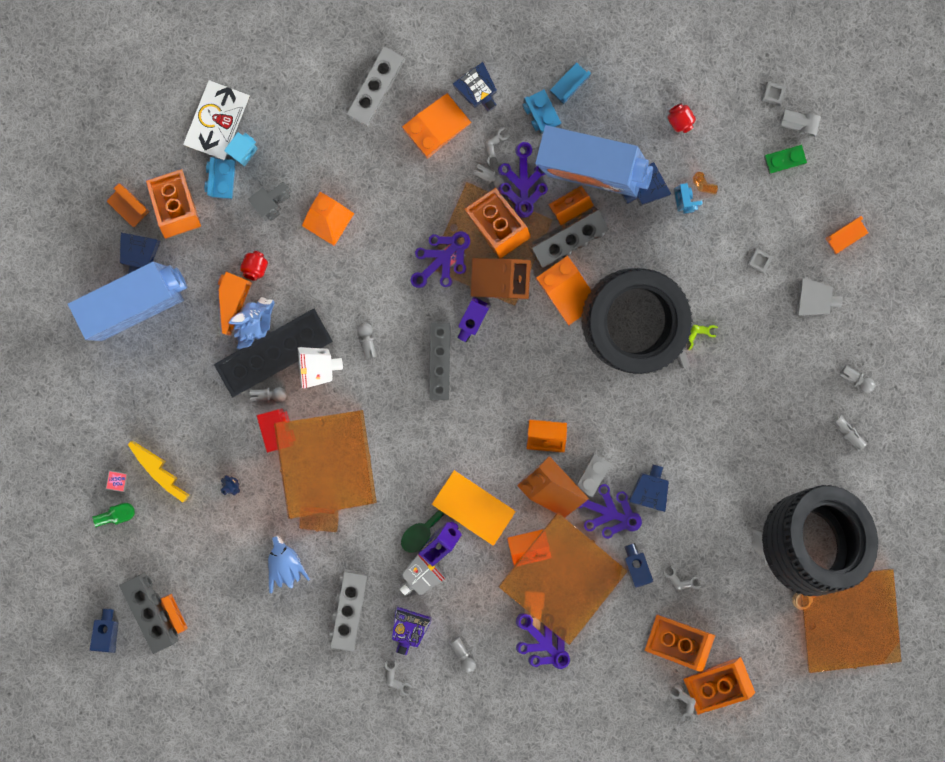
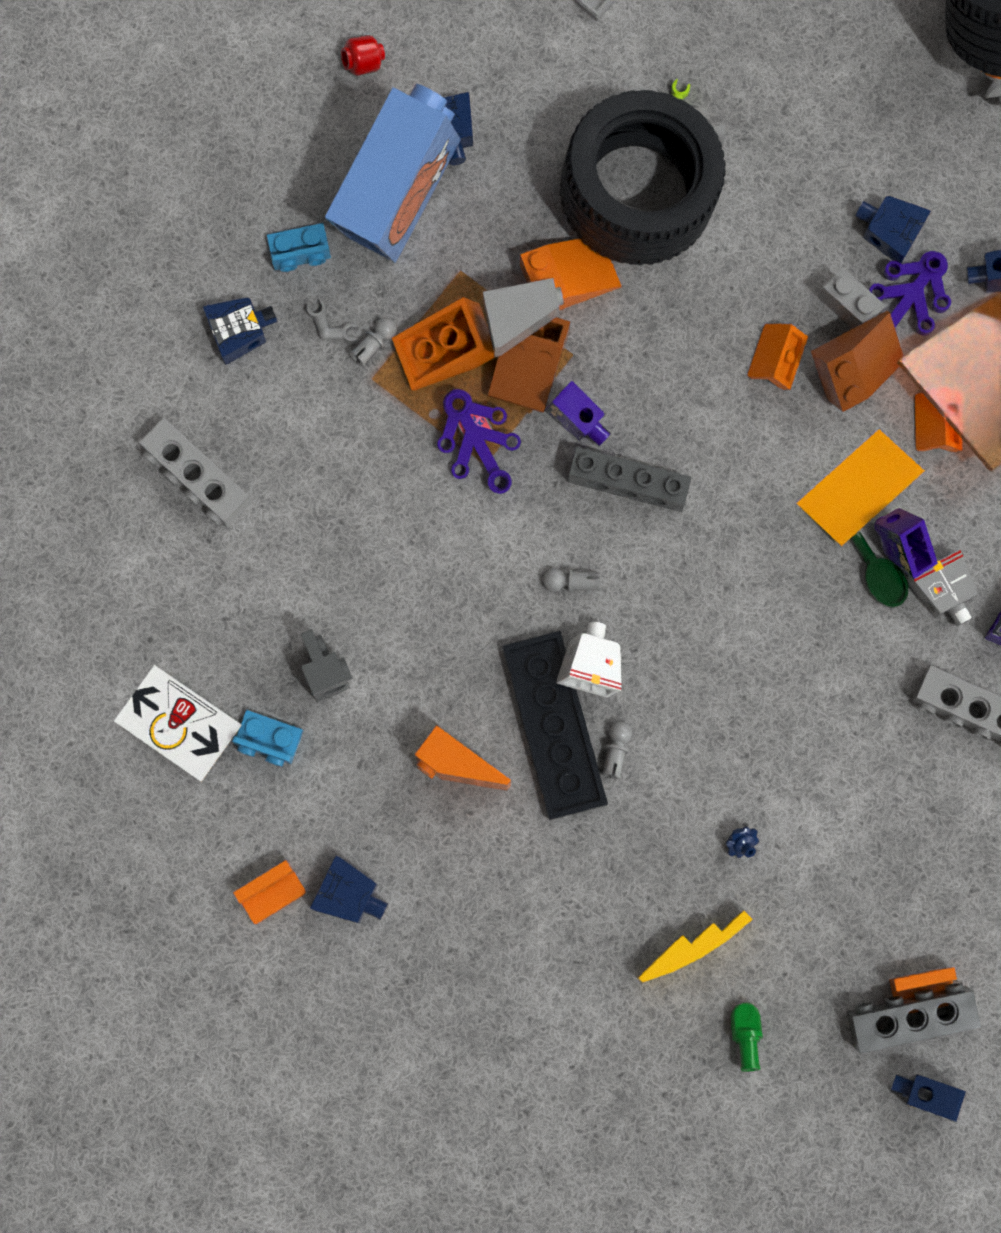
camera: 80 degrees left, 10 degrees down
(117, 481) = (693, 1019): tile -> none
(128, 301) = (420, 913): medium blue brick -> none
(173, 204) = (287, 819): orange slope -> none
(241, 148) = (232, 690): medium azure brick -> none
(248, 321) = (500, 741): medium blue piece -> none
(254, 265) = (414, 720): red head -> none
(266, 424) = (677, 745): red piece -> none
(284, 565) = (885, 788): medium blue piece -> none
(321, 522) = (824, 720): clear orange panel -> none
(325, 463) = (745, 683): clear orange piece -> none
(327, 218) = (371, 593): orange slope -> none
(436, 125) = (278, 401): orange slope -> none
(522, 182) = (395, 295): dark purple plant -> none
(523, 264) = (520, 311): none -> light grey slope
(541, 246) = (473, 212): dark grey brick -> none
(570, 83) = (269, 196): dark azure panel -> none
(571, 205) = (449, 237): orange panel -> none
(683, 199) = (481, 75): dark azure bracket -> none
(702, 185) = (467, 52): clear orange arm -> none

